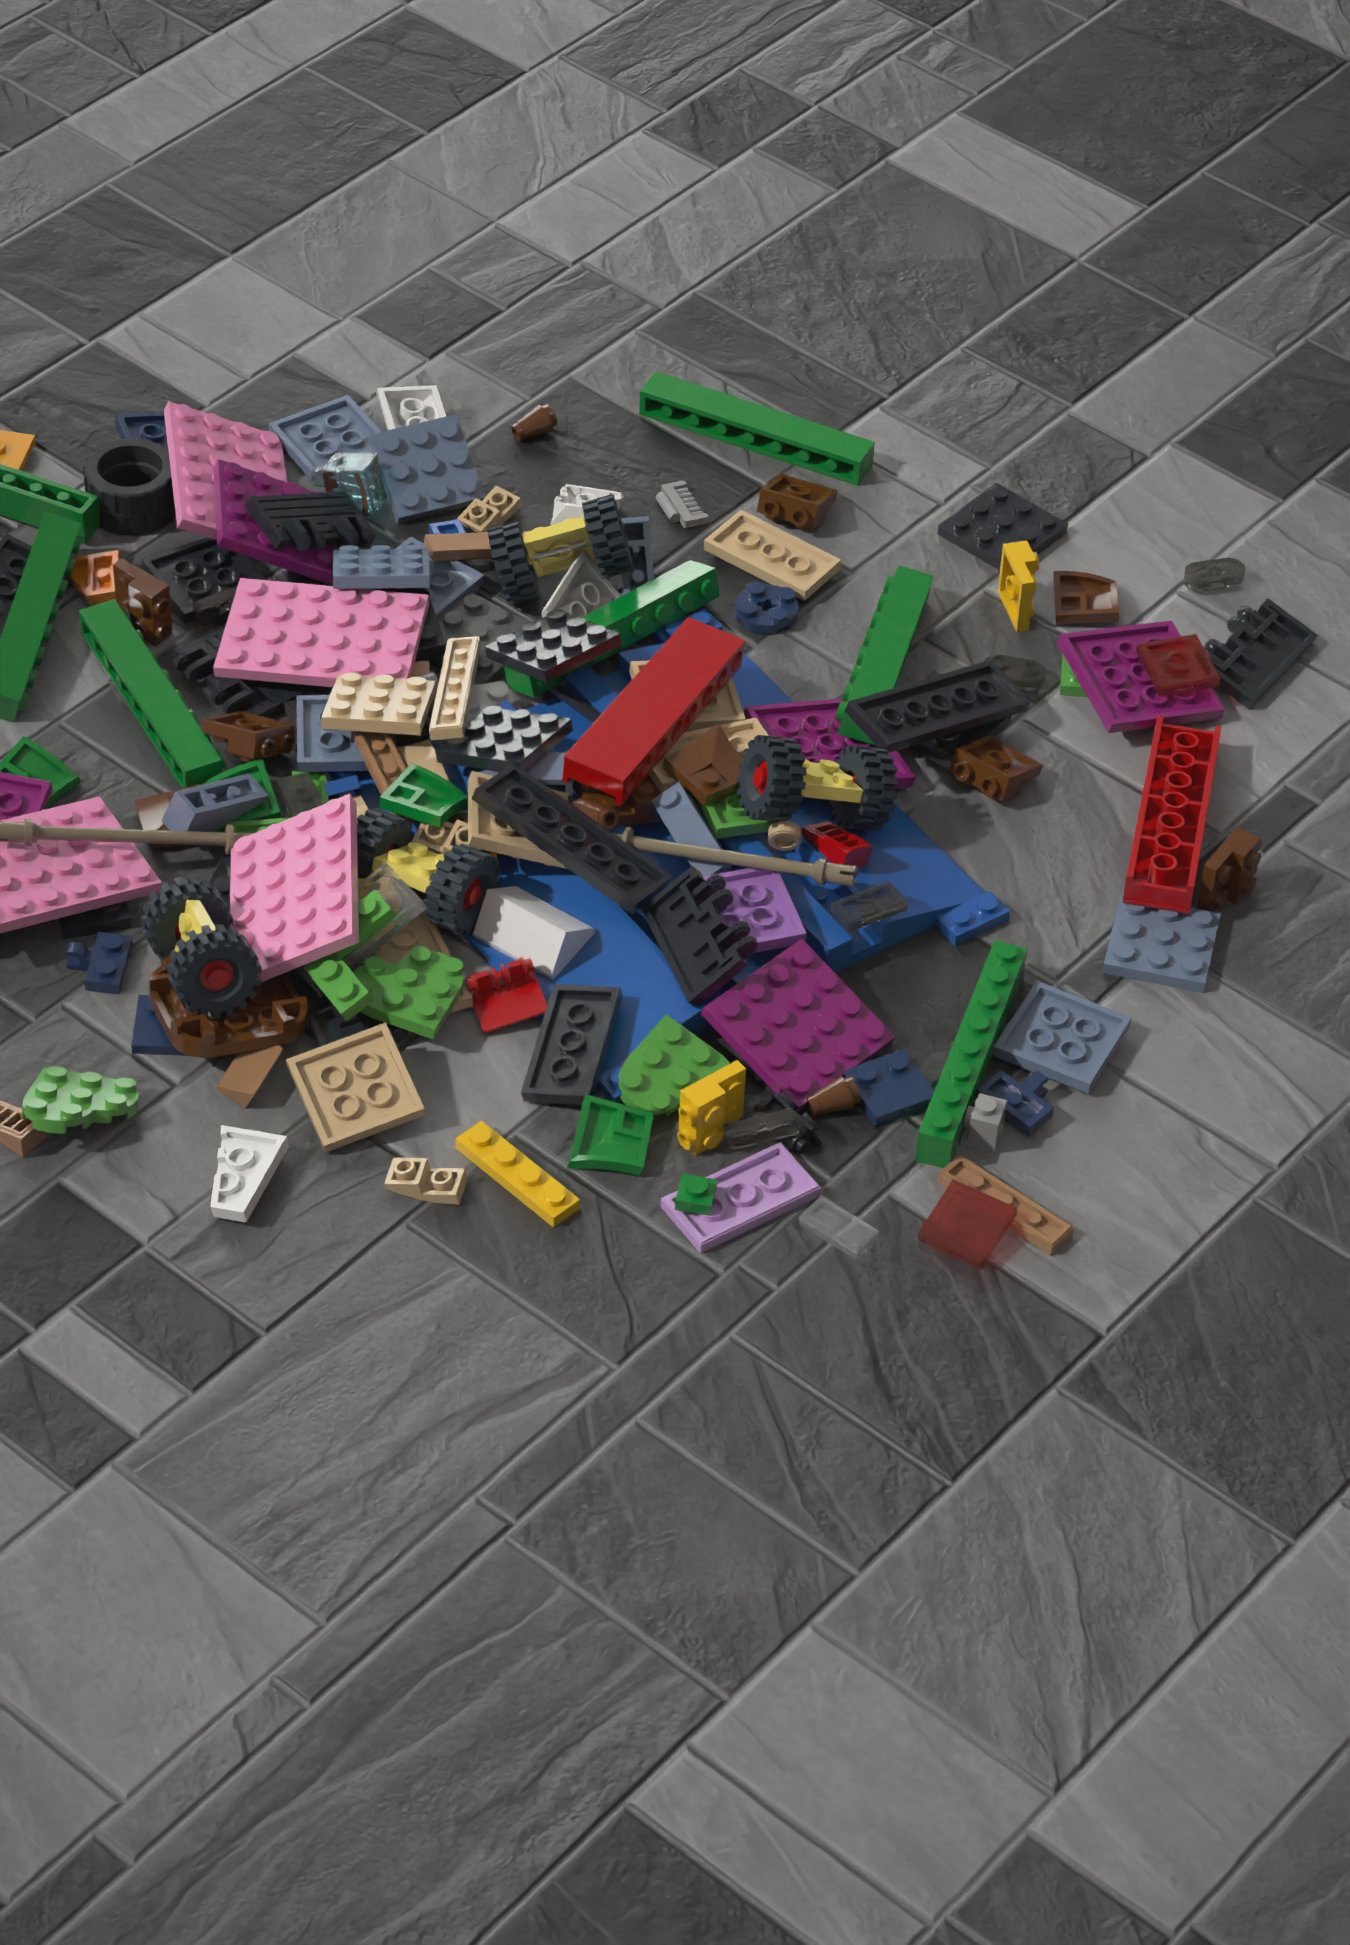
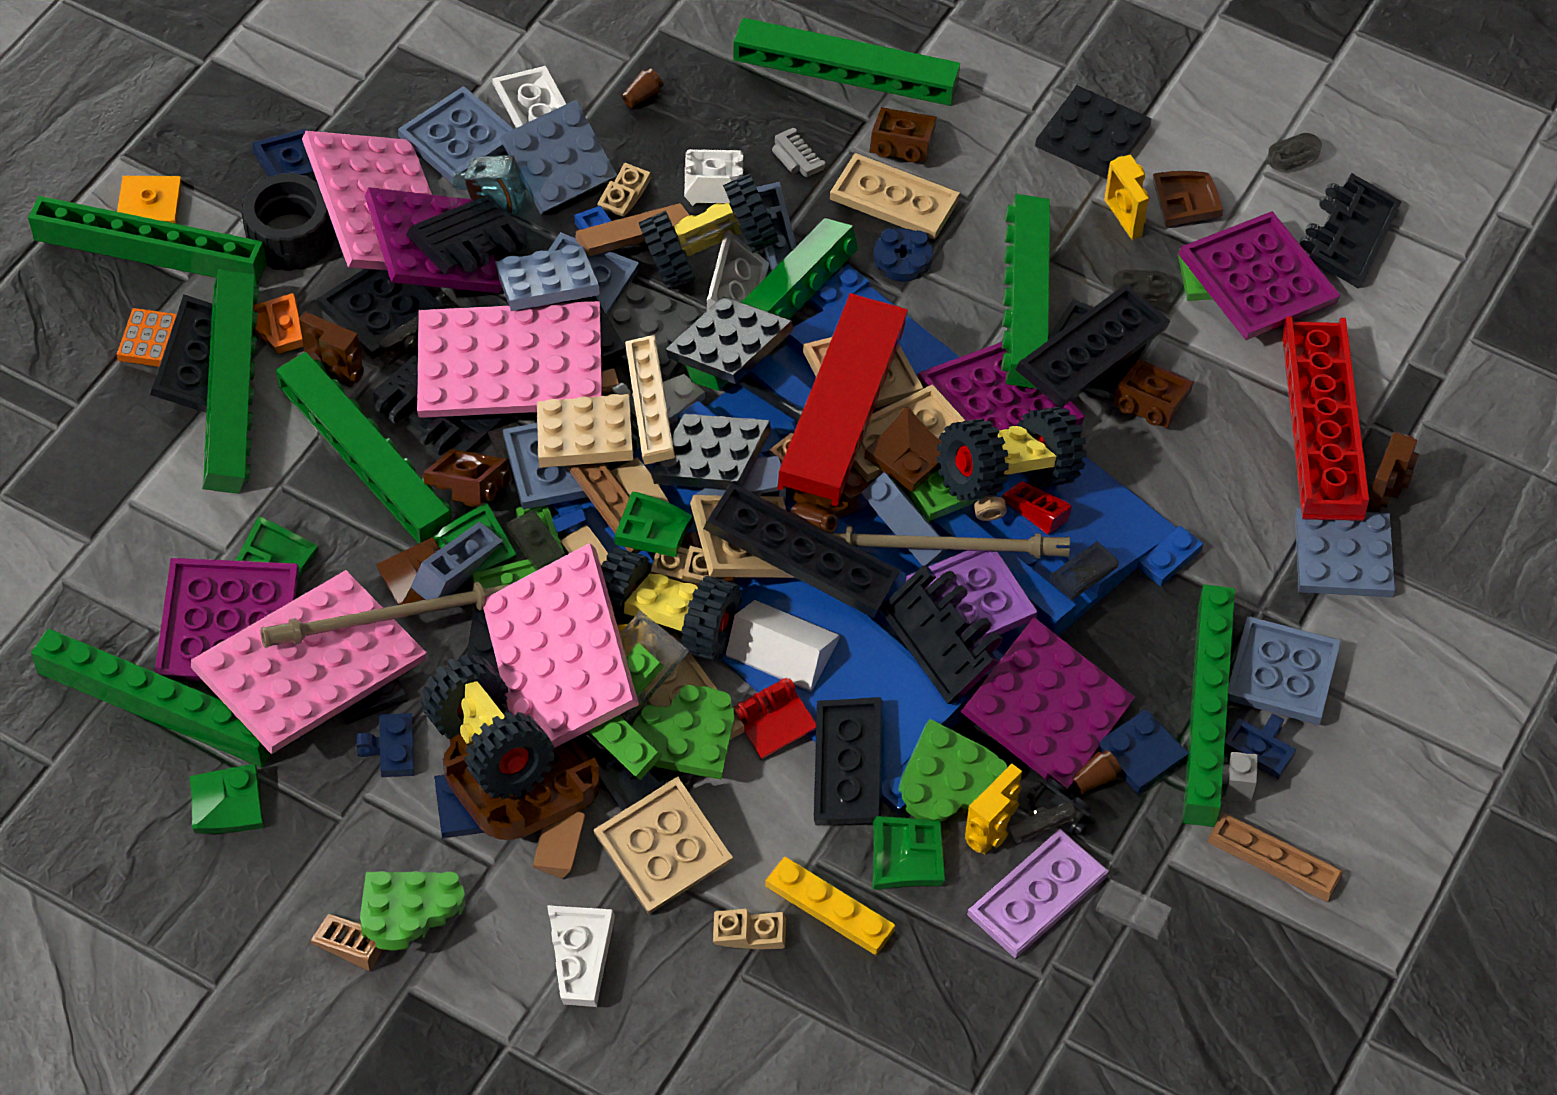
camera: 10 degrees left, 10 degrees up
(696, 1194) = (1000, 902): green plate -> none
(967, 1224) = (1249, 886): clear red tile -> none
(1177, 665) = (1291, 260): clear red tile -> none

